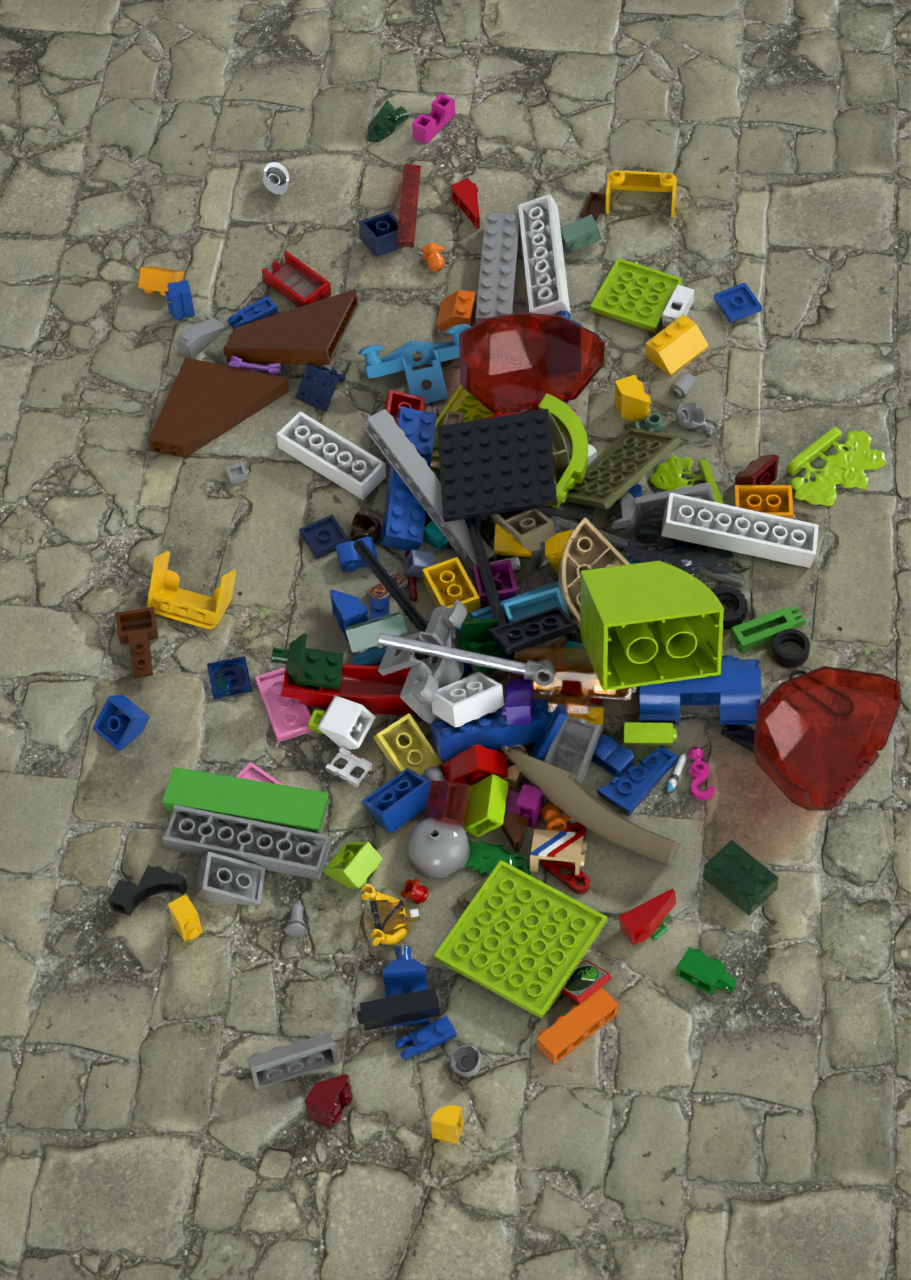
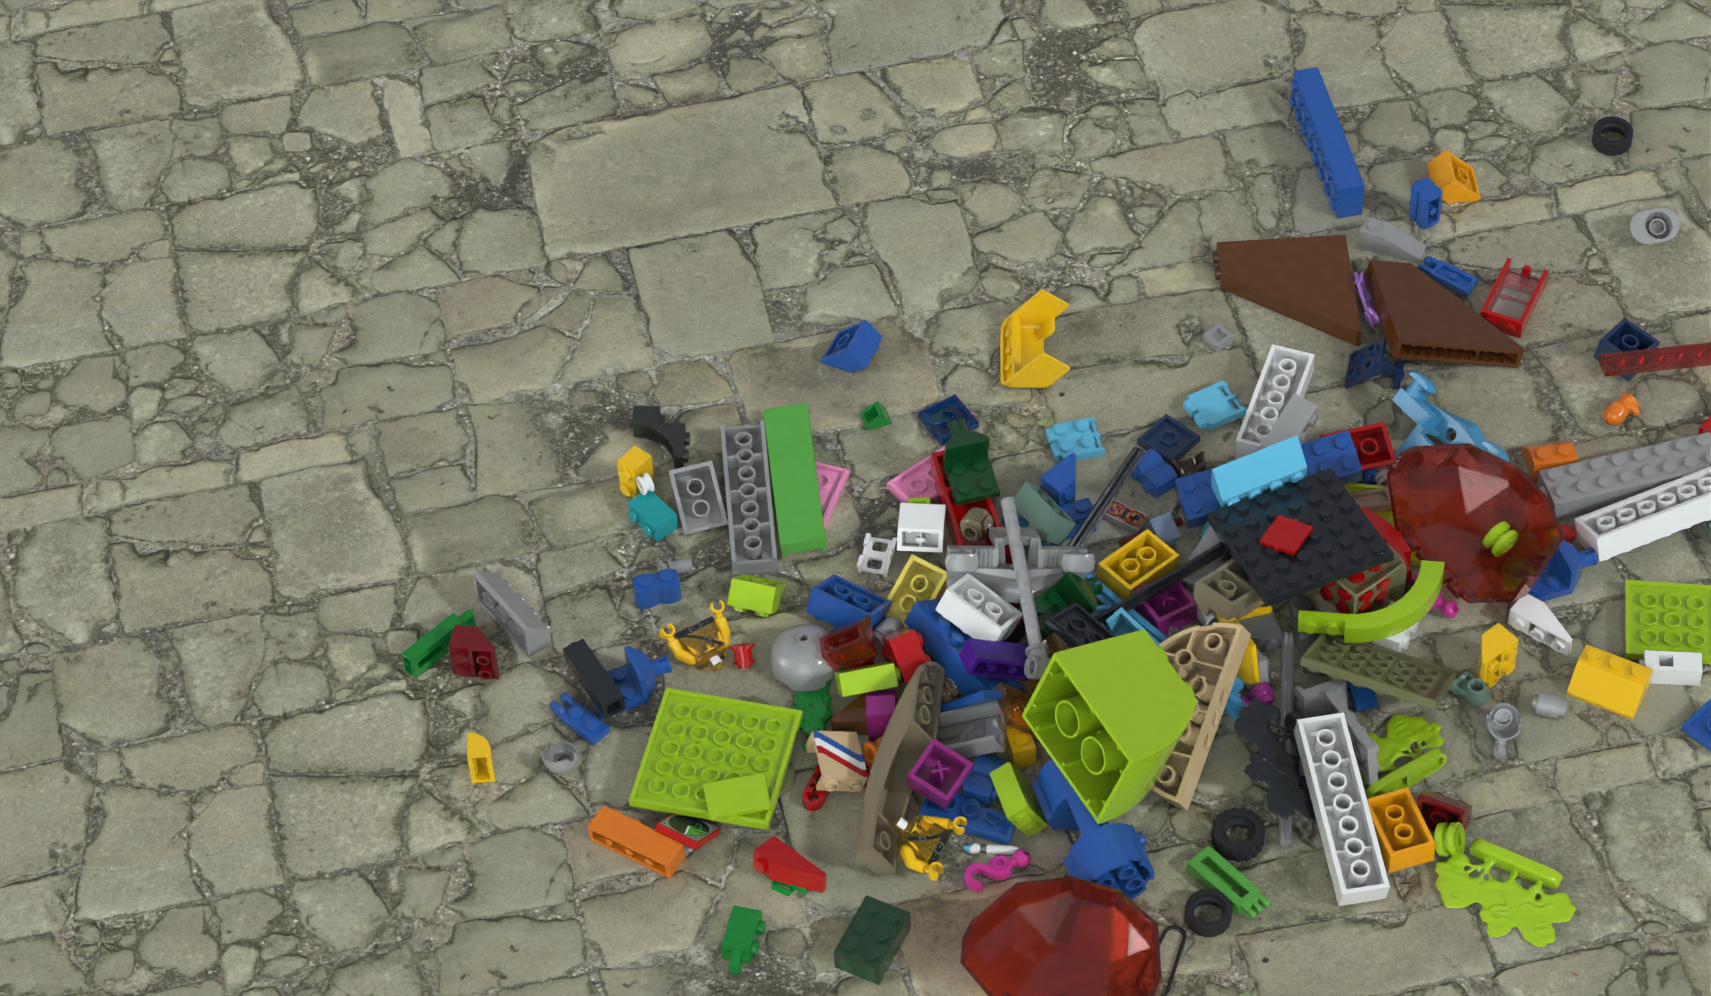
camera: 70 degrees right, 5 degrees down
(84, 338) = (1327, 143): none -> blue brick
(137, 629) = (967, 318): reddish brown plate -> none
(170, 184) = (1611, 147): none -> black tyre
(200, 728) = (875, 416): none -> green slope
(207, 911) = (645, 483): none -> white bush
(231, 921) = (652, 515): none -> teal brick
(294, 597) = (1076, 438): none -> medium azure plate
(299, 1130) = (434, 644): none -> green hinge
(307, 496) = (1212, 407): none -> medium azure plate
(315, 938) = (656, 588): none -> blue brick
(368, 679) = (976, 524): none -> dark tan head
(429, 468) = (1259, 472): none -> medium azure slope
(498, 469) = (1286, 535): none -> red piece
(527, 360) = (1500, 538): none -> lime wheel
(571, 931) = (736, 796): none -> lime piece
(609, 777) = (939, 774): none -> magenta brick
(613, 366) = (1538, 621): none -> white slope
(662, 813) = (923, 841): none -> torso
(785, 476) = (1450, 839): none -> lime wheel

